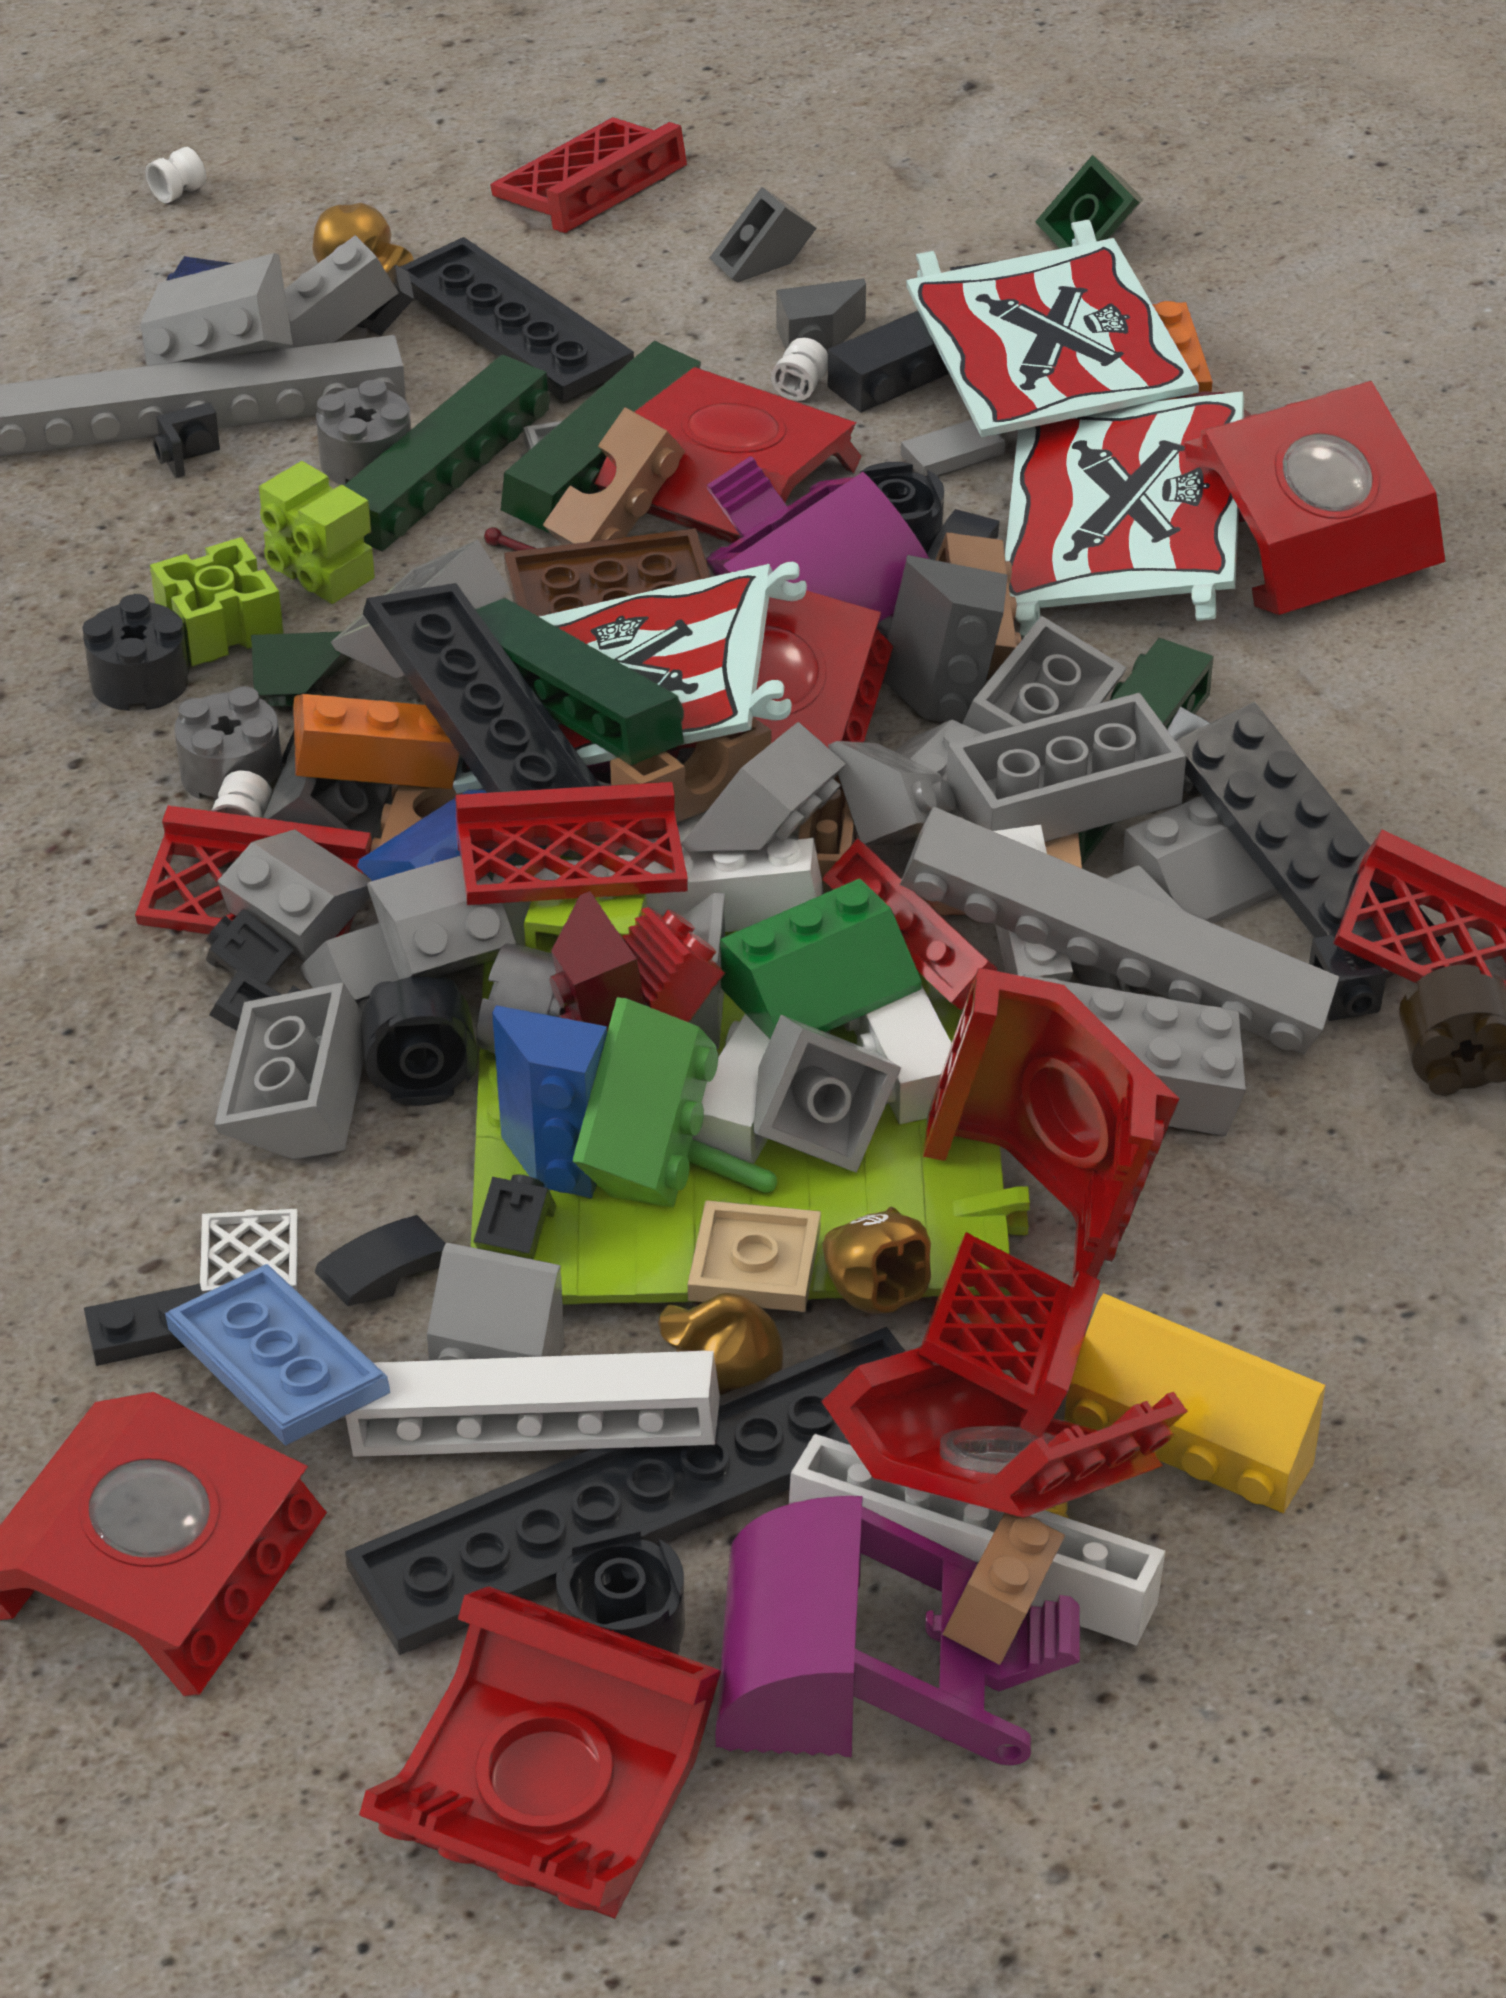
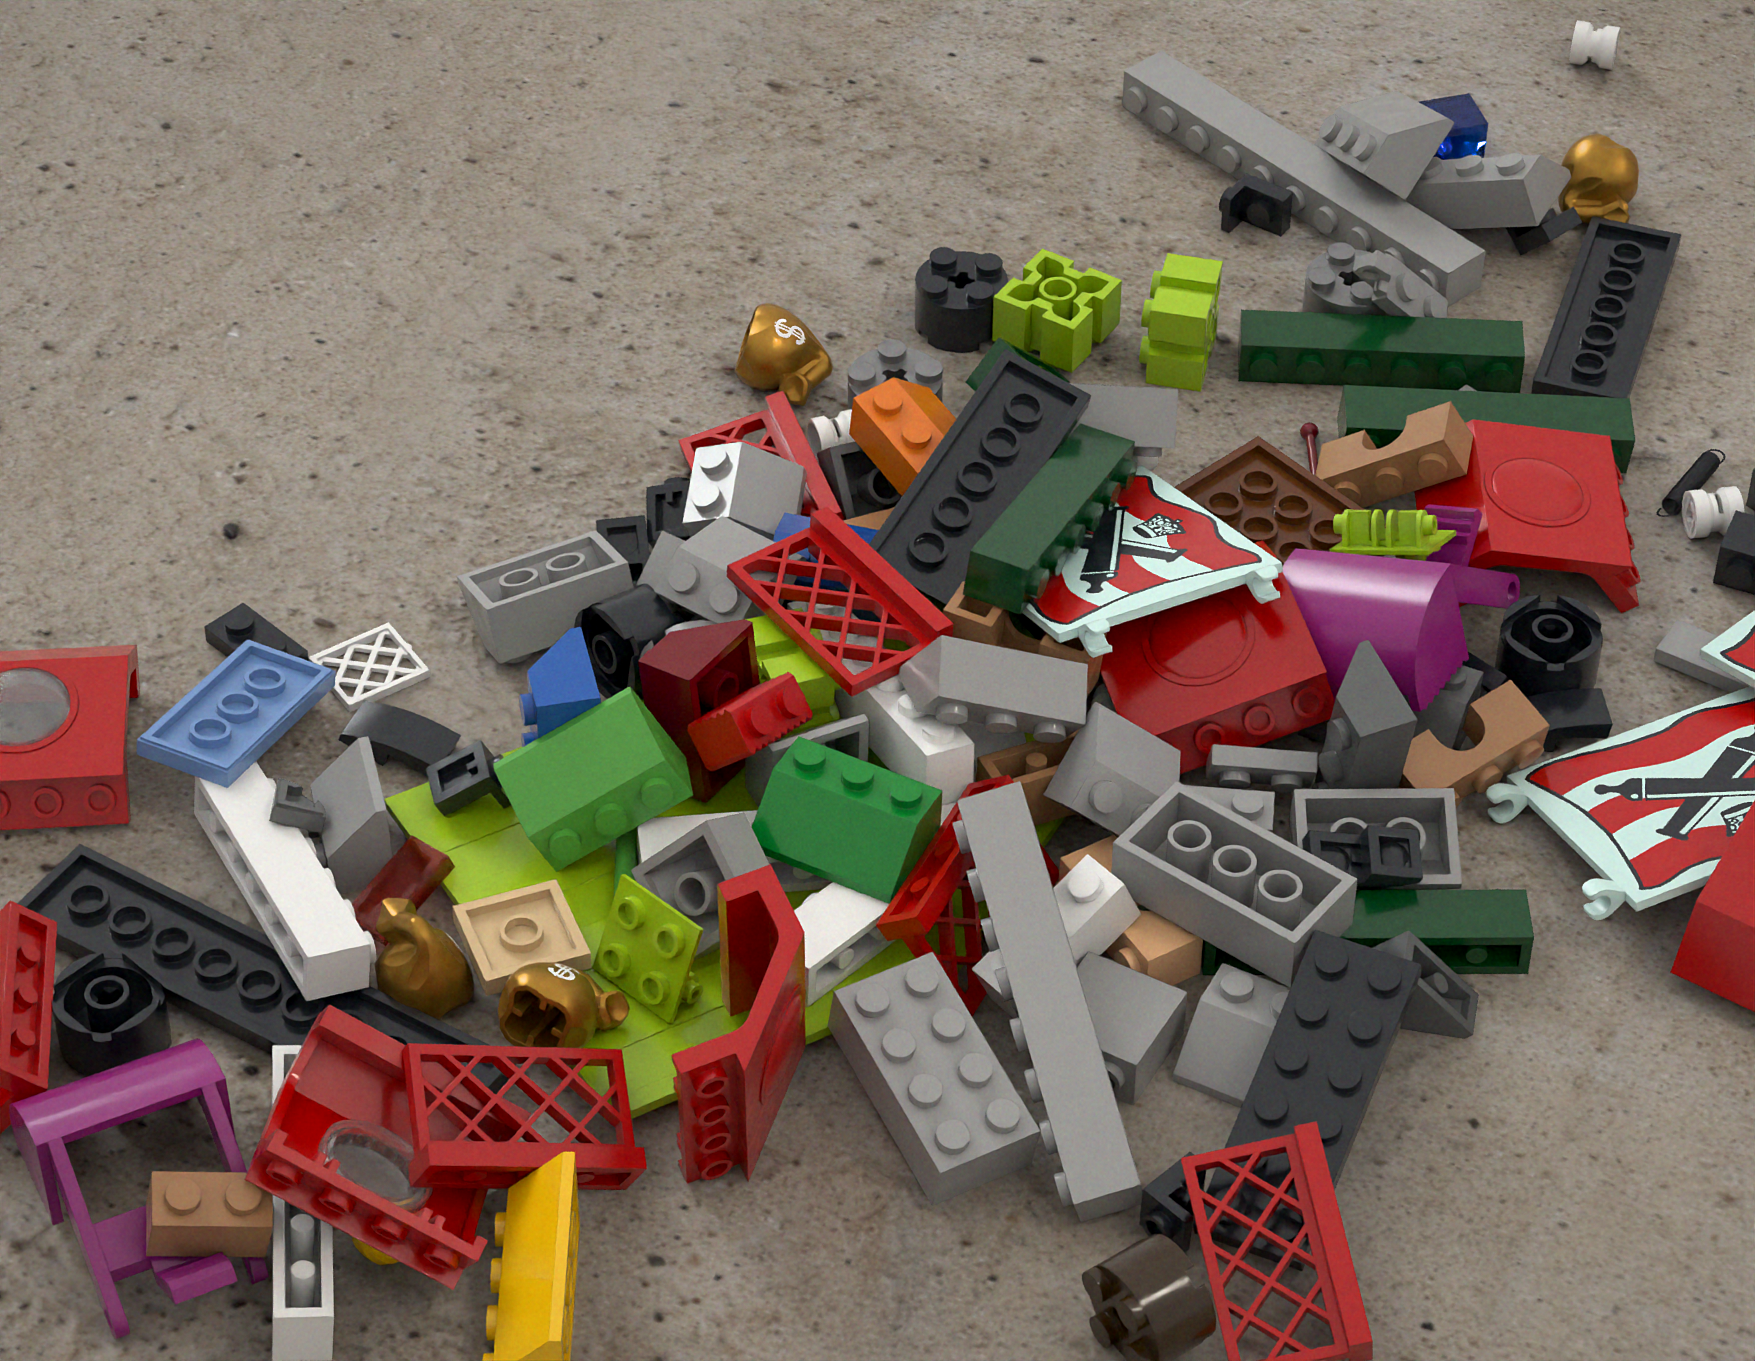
camera: 60 degrees right, 0 degrees up
(93, 797) = (781, 355): none -> pearl gold piece
(411, 391) = (1398, 288): none -> light grey hinge
(465, 1351) = (296, 810): none -> dark grey tile
(597, 1316) = (408, 875): none -> clear red tile
(744, 365) = (1691, 480): none -> black piece
(747, 515) = (1407, 533): none -> lime hinge
(859, 1162) = (649, 950): none -> lime hinge
(915, 711) = (1282, 769): none -> light grey plate
(1076, 687) = (1375, 857): none -> black slope

